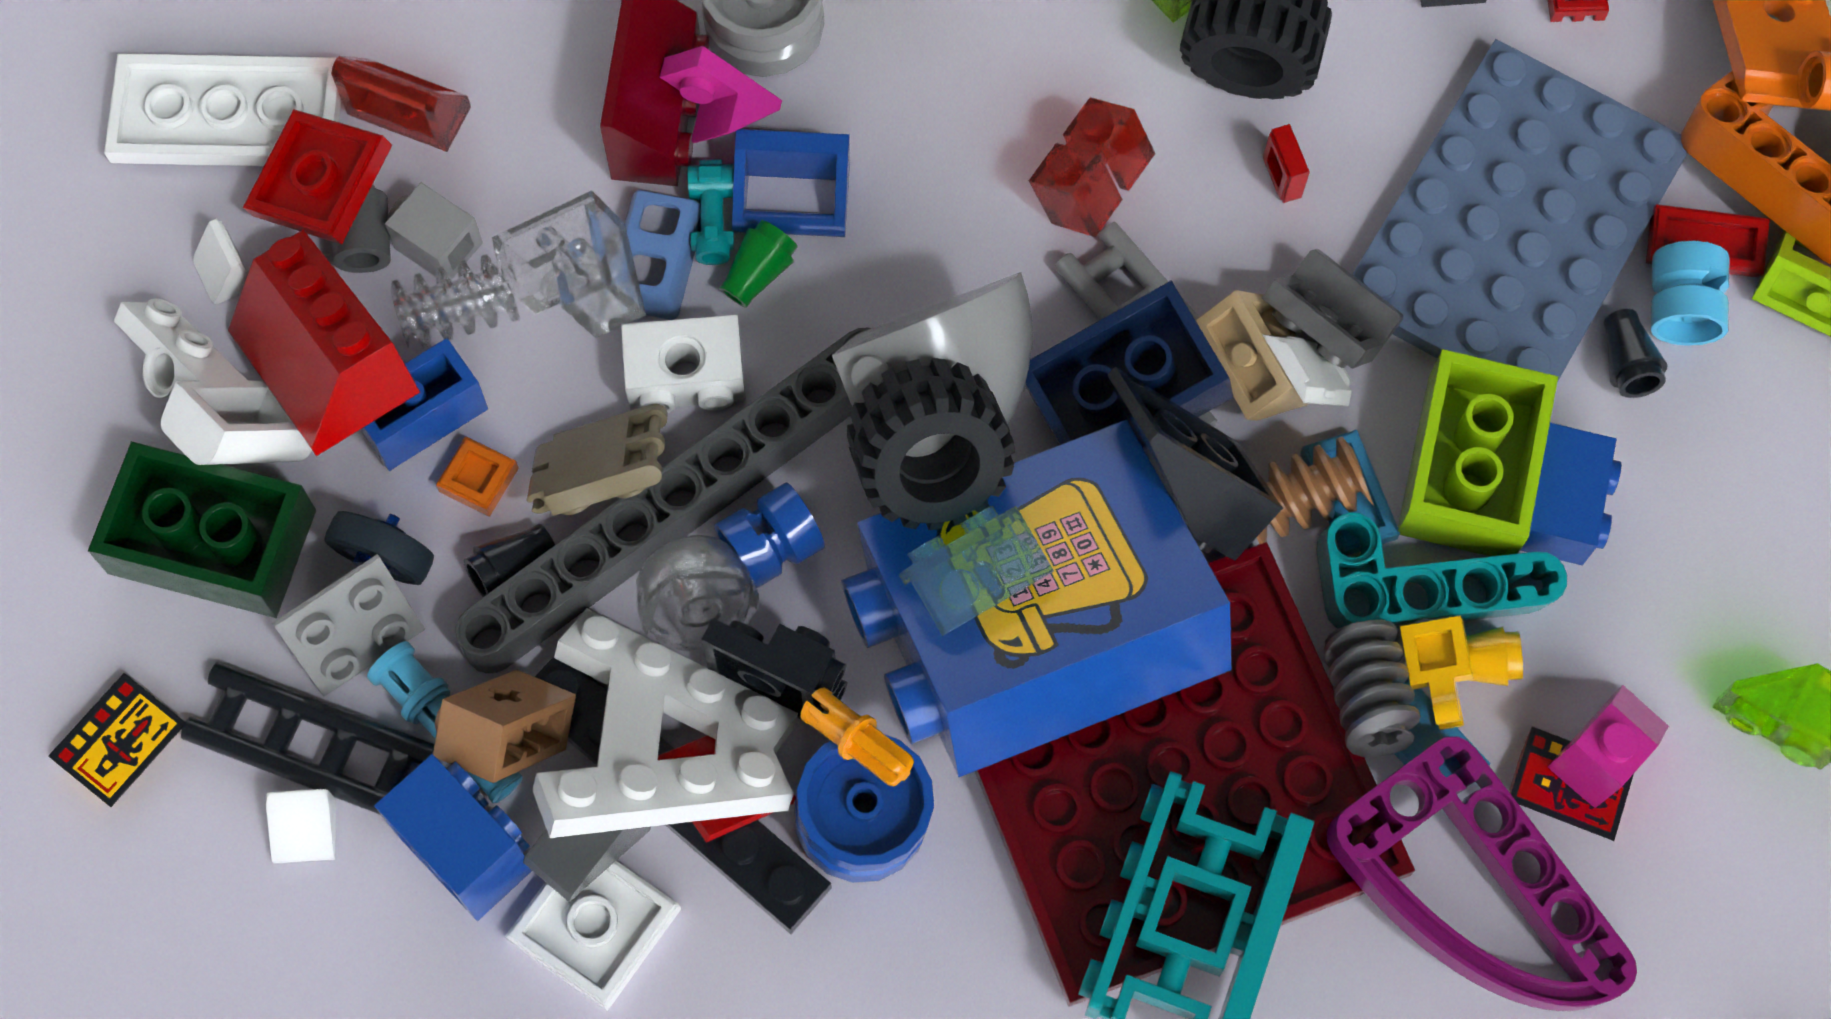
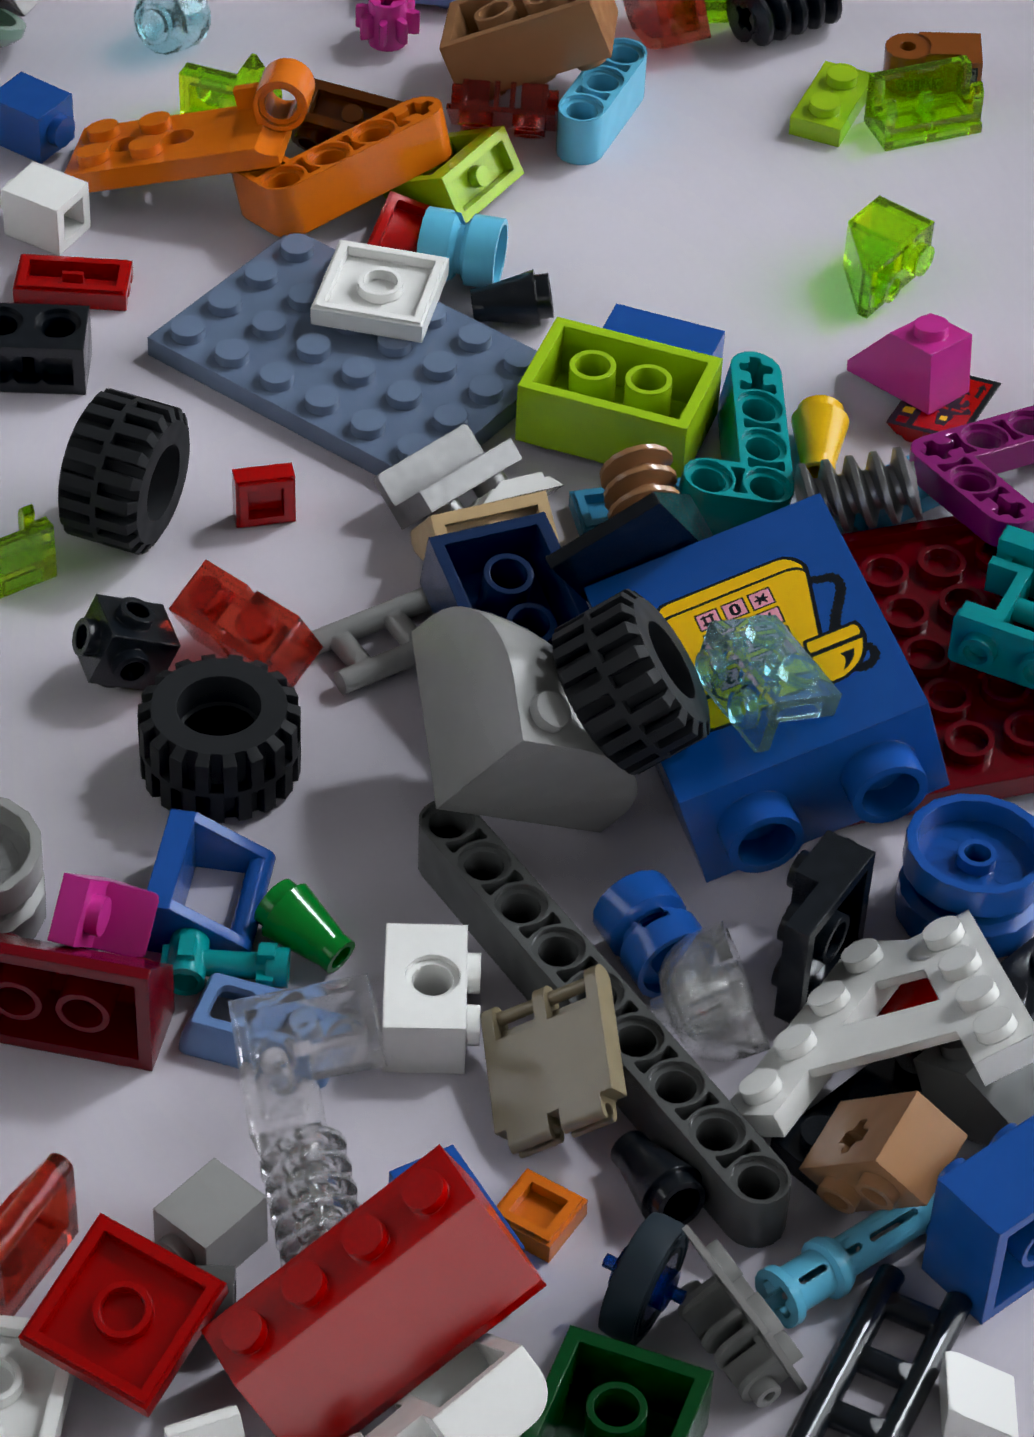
camera: 85 degrees left, 25 degrees down
(858, 738) = (925, 823): light orange axle -> none
(955, 125) = (220, 737): none -> black tyre
(1061, 90) = (124, 642): none -> black brick
(1438, 659) = (835, 437): yellow plate -> none
(1594, 223) = (380, 291): none -> white tile

